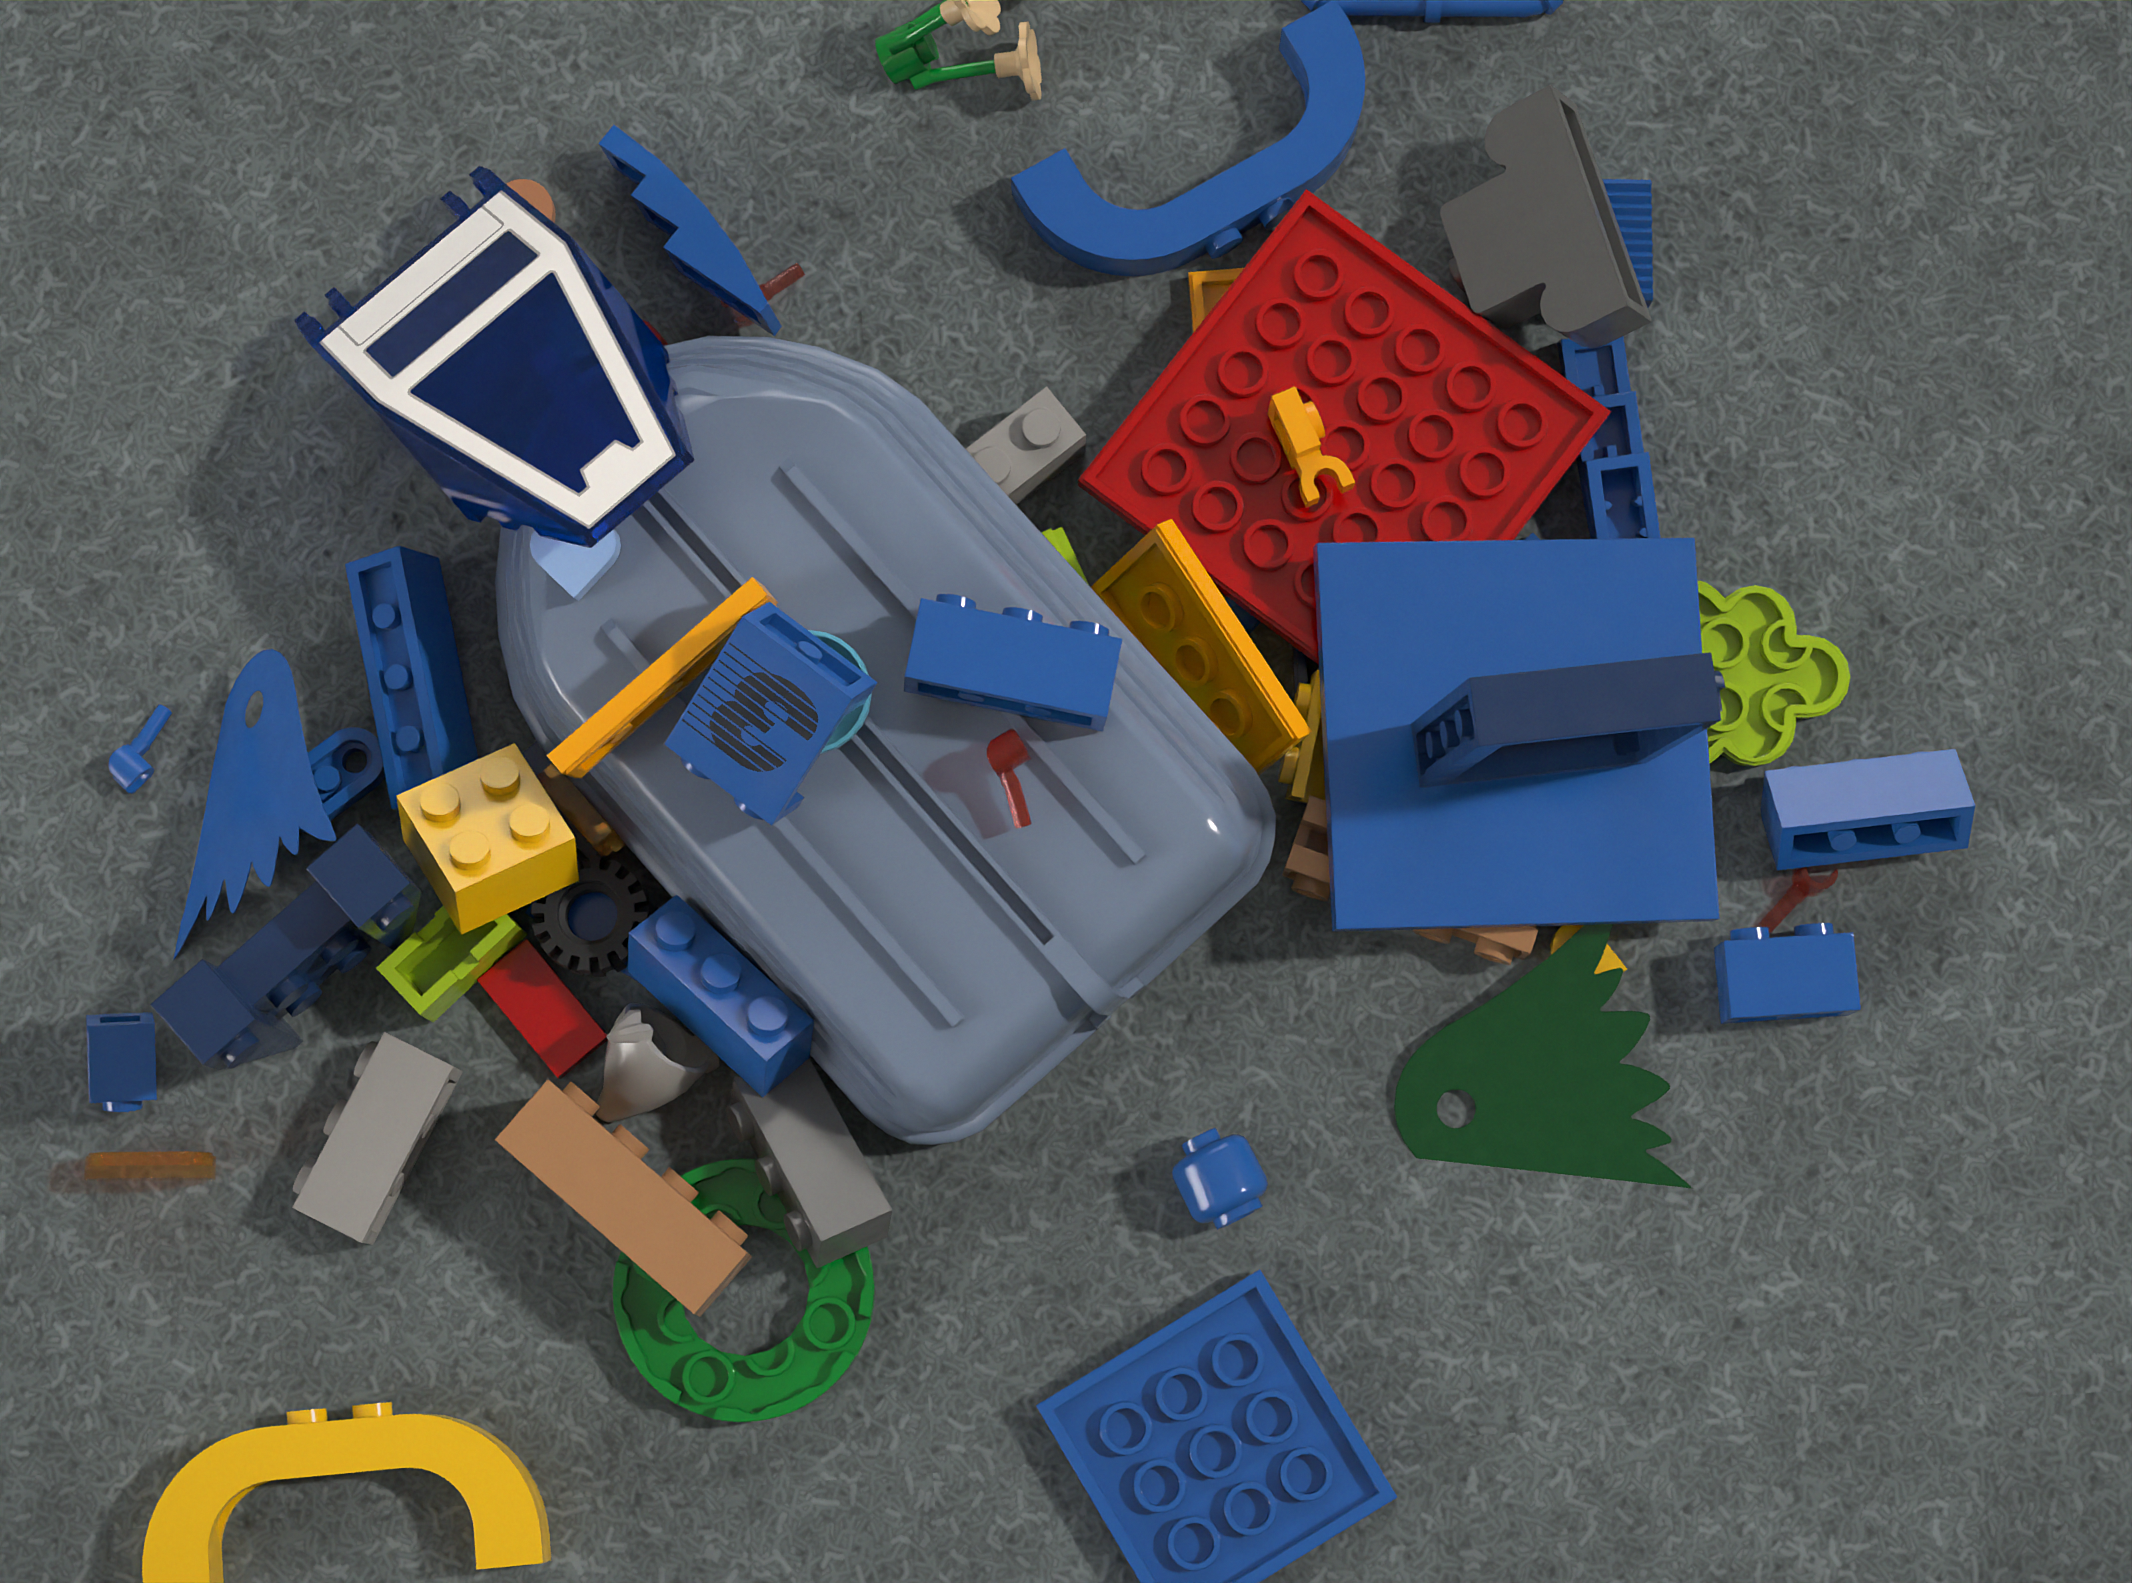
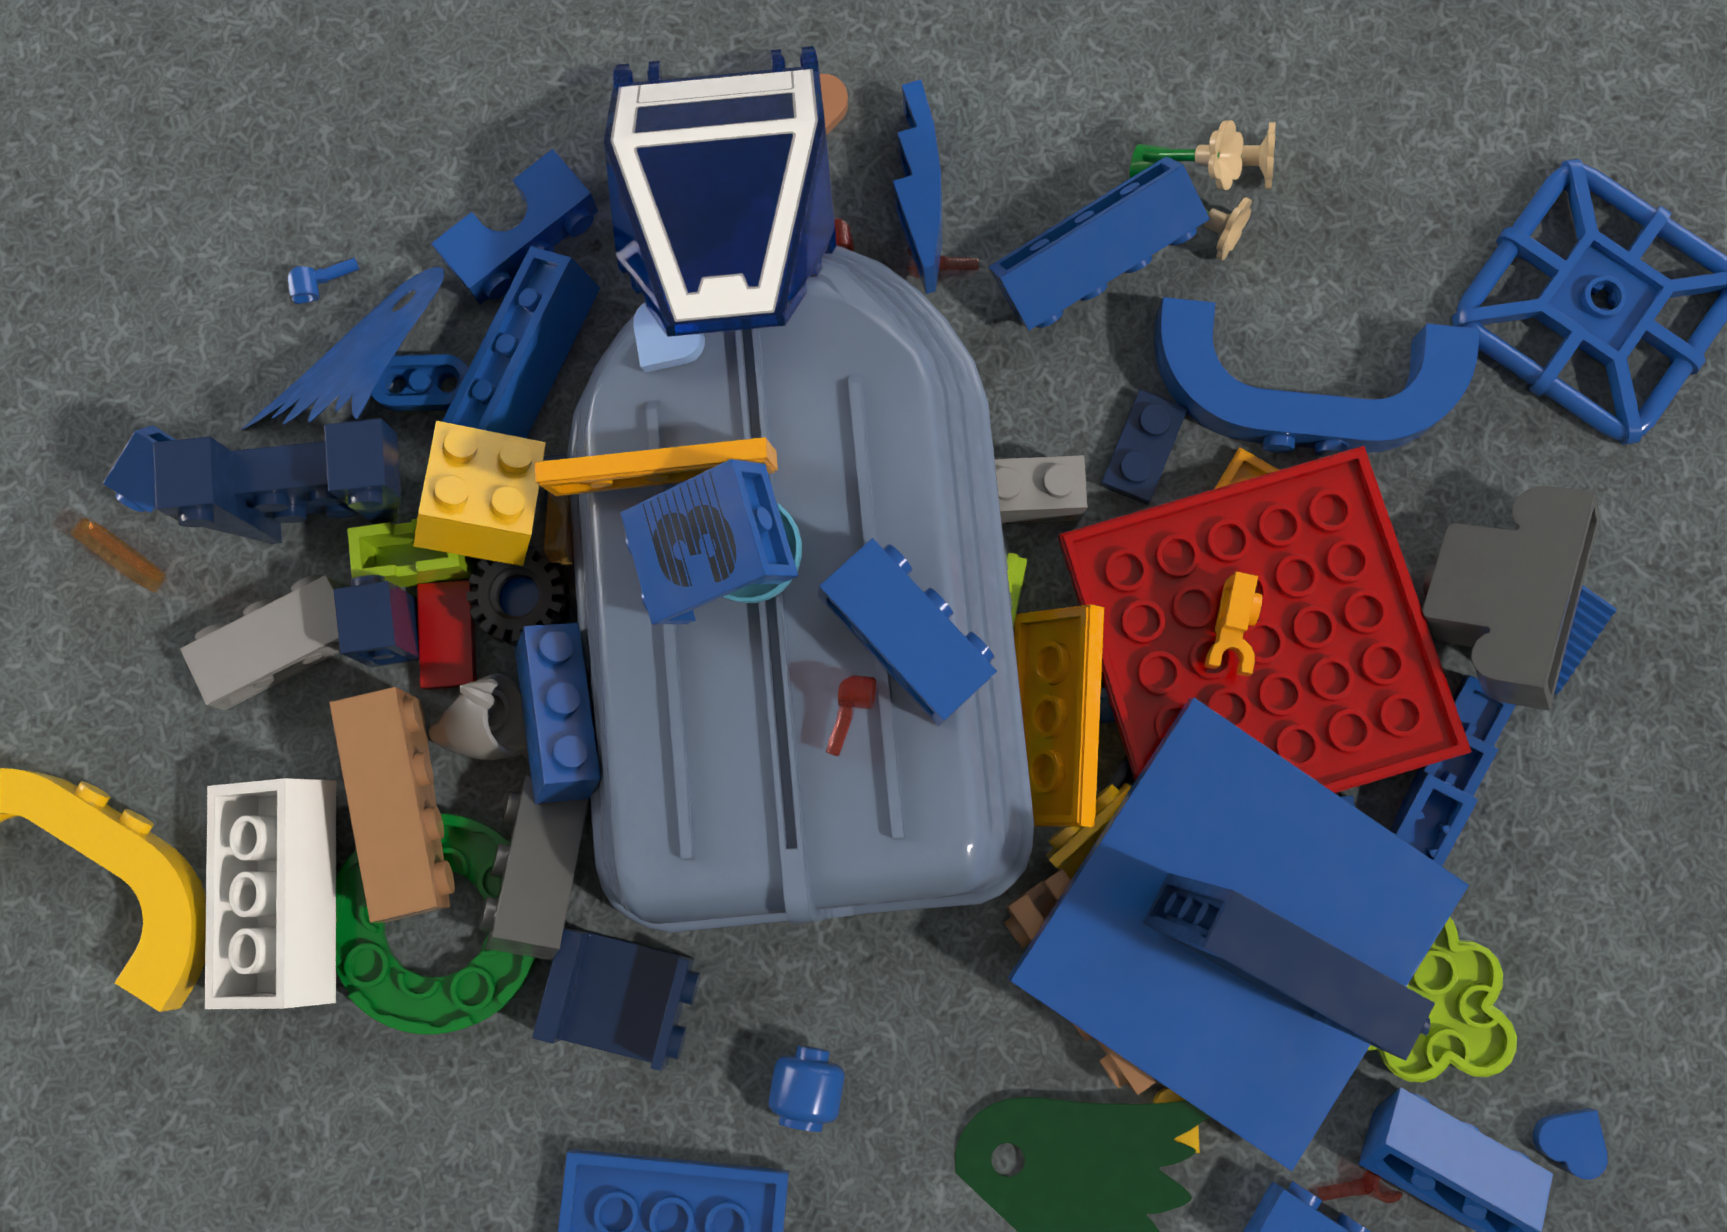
camera: 40 degrees right, 0 degrees up
(304, 609) = (489, 258): none -> blue arch
(473, 1039) = (377, 622): none -> dark blue brick
(566, 1371) = (271, 894): none -> white brick
(910, 168) = (1100, 243): none -> blue brick
(978, 1229) = (617, 997): none -> dark blue panel
(1095, 337) = (1143, 447): none -> dark blue plate
(1959, 708) = (1574, 1140): none -> blue tile

